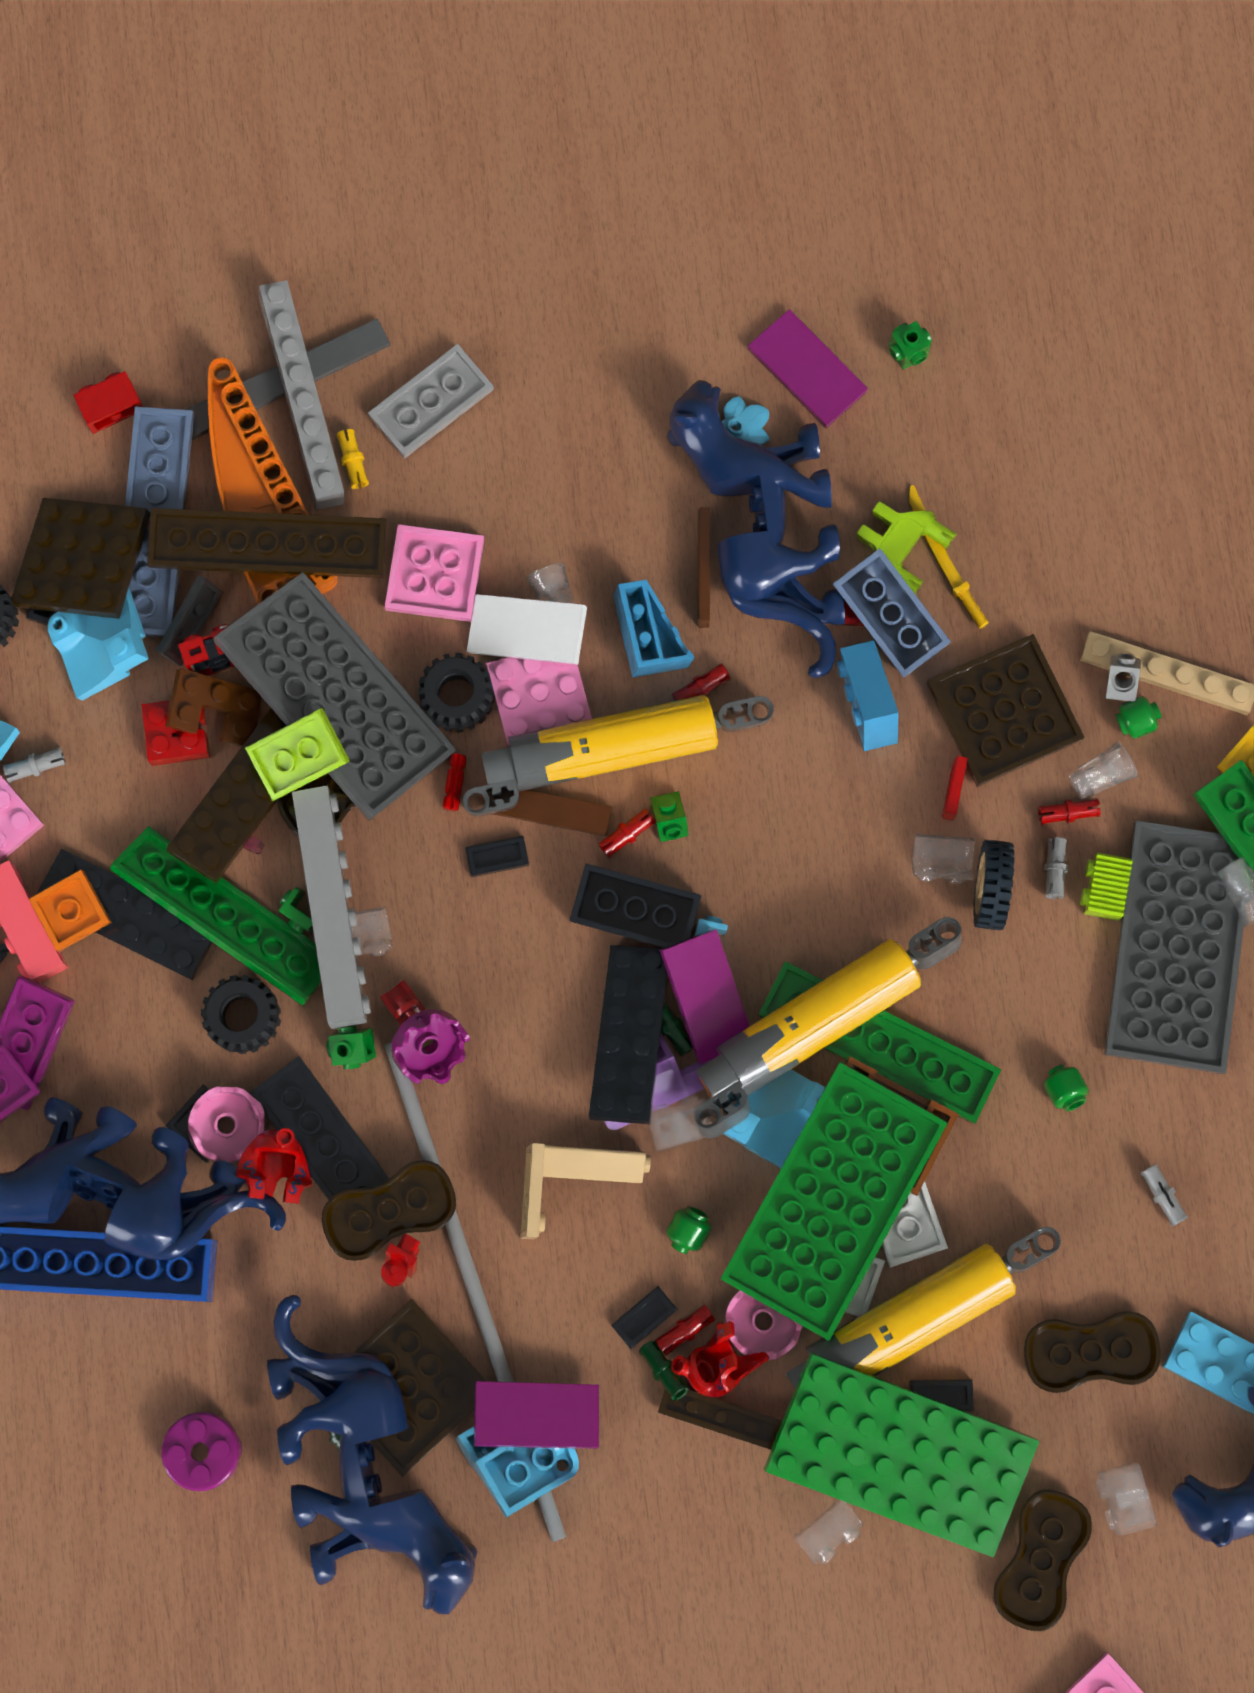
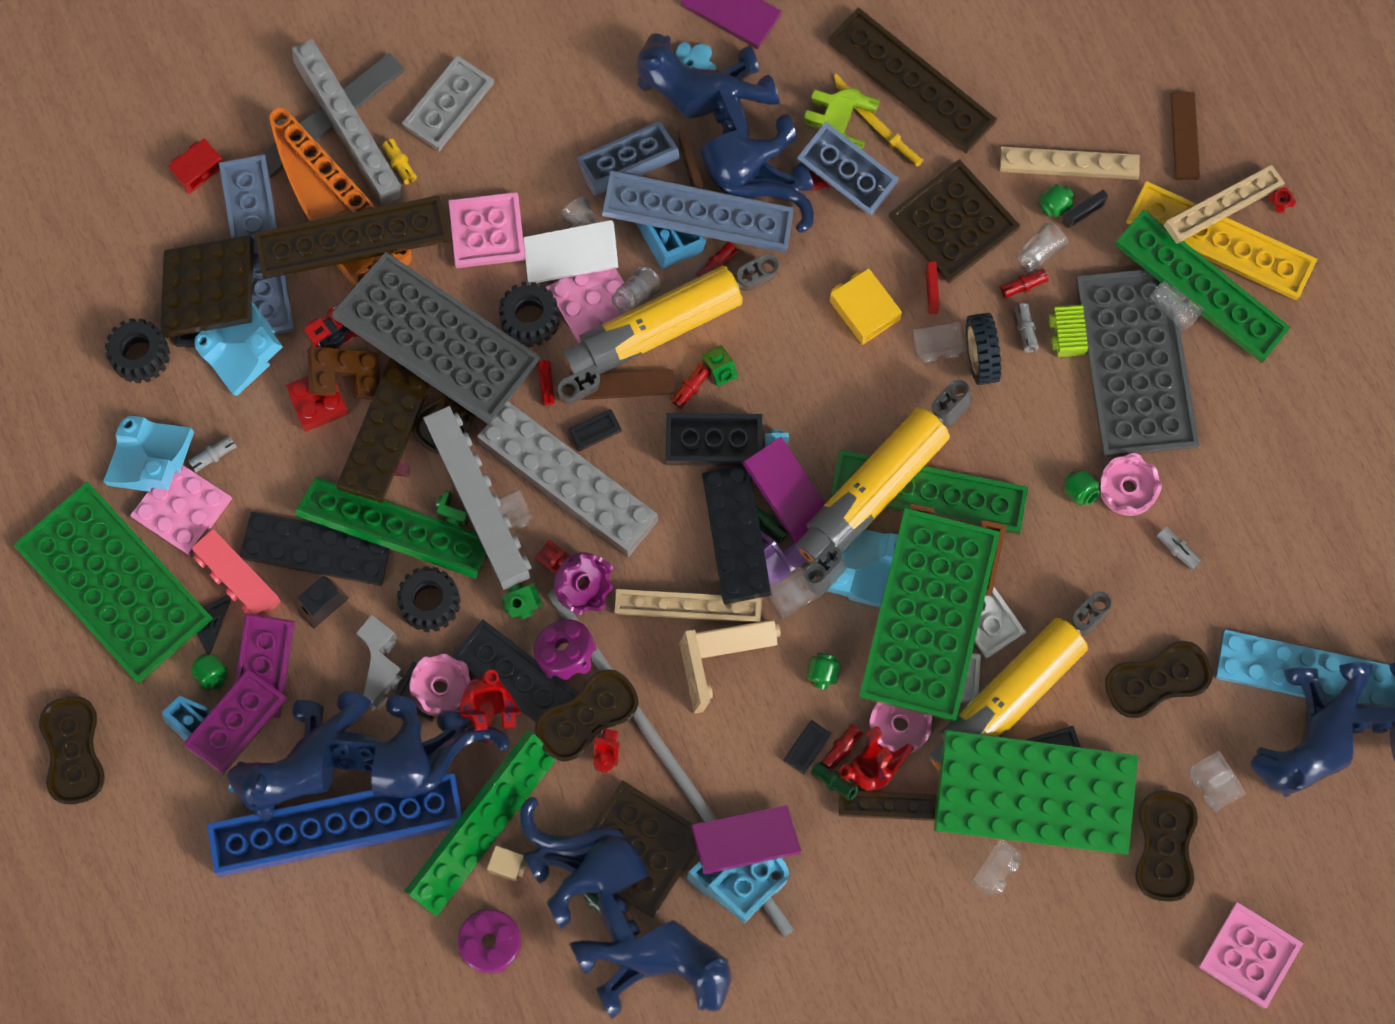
camera: 15 degrees left, 5 degrees down
(70, 910) = (272, 554): orange plate -> none
(115, 981) = (320, 601): none -> black torso
(163, 1089) = (382, 672): none -> light grey arch
(189, 618) = (305, 311): dark grey tile -> none
(226, 1309) = (480, 824): none -> green plate
(247, 1363) = (507, 864): none -> tan brick
(297, 754) = (420, 386): lime tile -> none
(395, 1135) = (573, 658): none -> magenta plate
(447, 911) = (568, 479): none -> light grey brick
(544, 1106) = (685, 606): none -> tan plate
(594, 696) = (638, 288): none -> clear plant
(628, 528) = (630, 155): none -> sand blue brick
(693, 620) = (698, 211): none -> sand blue plate
(865, 788) = (865, 305): none -> yellow brick
(869, 694) = (847, 234): dark azure wedge -> none
(1004, 518) = (912, 80): none -> dark brown plate
(1123, 689) = (1039, 182): light grey brick -> none
(1147, 1098) = (1137, 471): none -> bright pink plate
(1170, 737) = (1085, 209): none -> black tile

